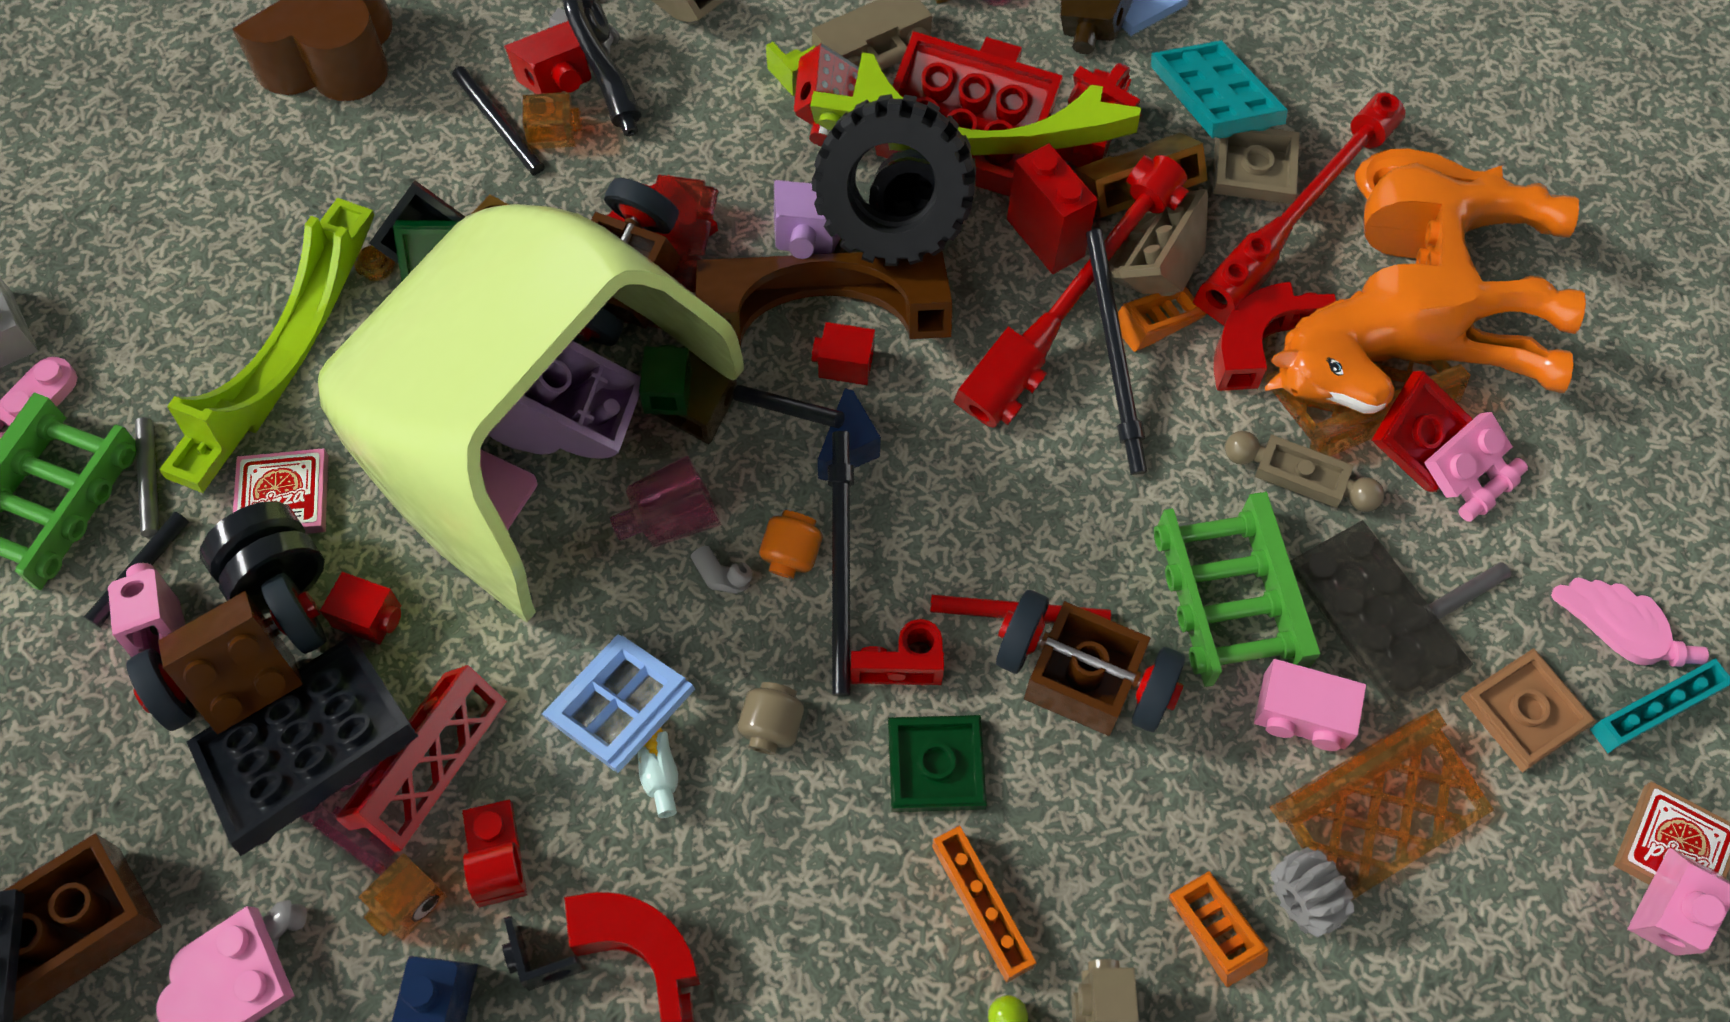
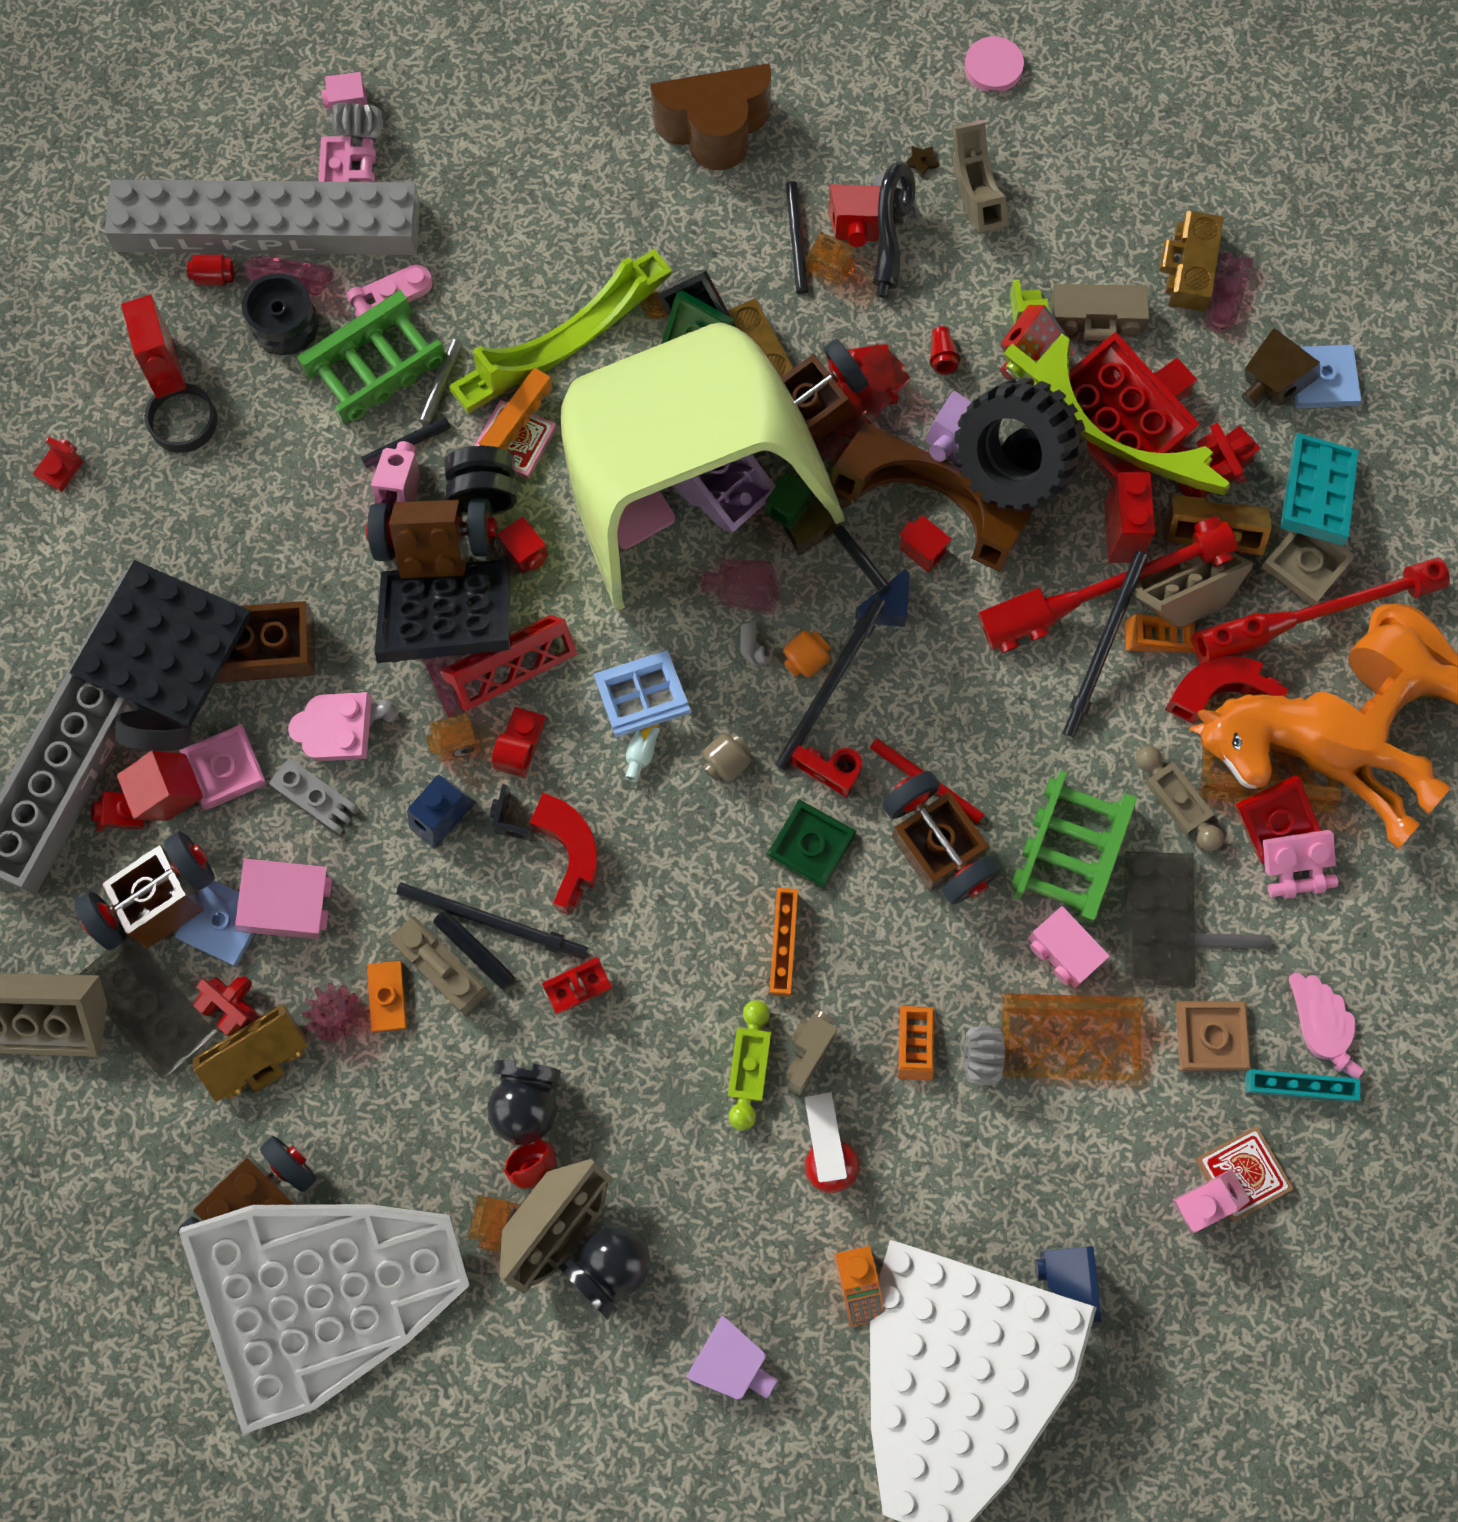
camera: 35 degrees right, 10 degrees up
(267, 450) = (518, 410): none -> orange piece
(737, 154) = (943, 354): none -> red cone

